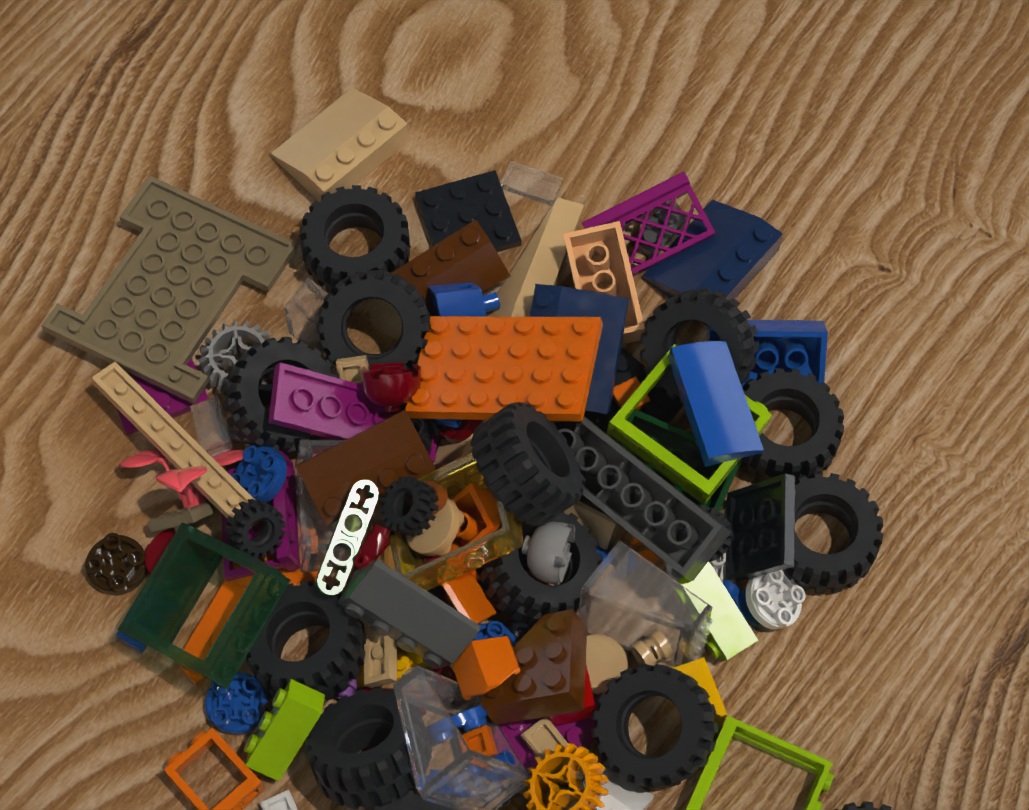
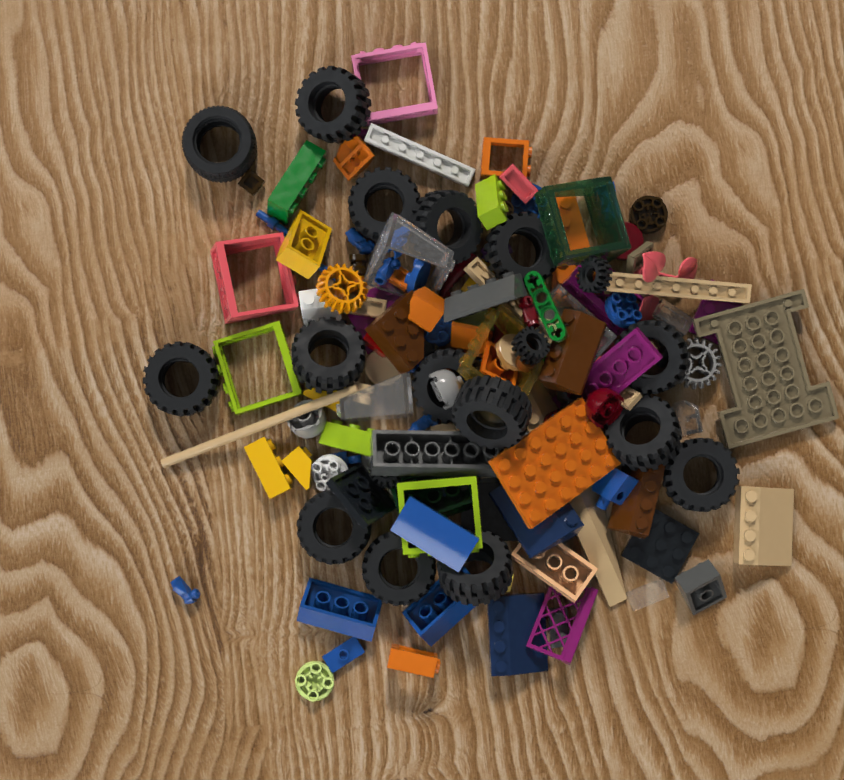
camera: 135 degrees right, 20 degrees up
(229, 727) = (518, 183): none -> coral tile
(467, 143) = (701, 586): none -> dark grey slope
(624, 391) = (488, 514): orange tile -> none
(747, 680) = (309, 424): none -> light grey cylinder
(802, 639) = (300, 465): none -> yellow slope
(816, 722) = (258, 426): none -> tan piece
(843, 670) = (268, 467): none -> yellow brick
(857, 320) = (413, 660): none -> orange window
(895, 445) = (339, 609): none -> blue slope
(931, 399) = (343, 654): none -> blue plate
(990, 399) = (314, 681): none -> yellowish green tile

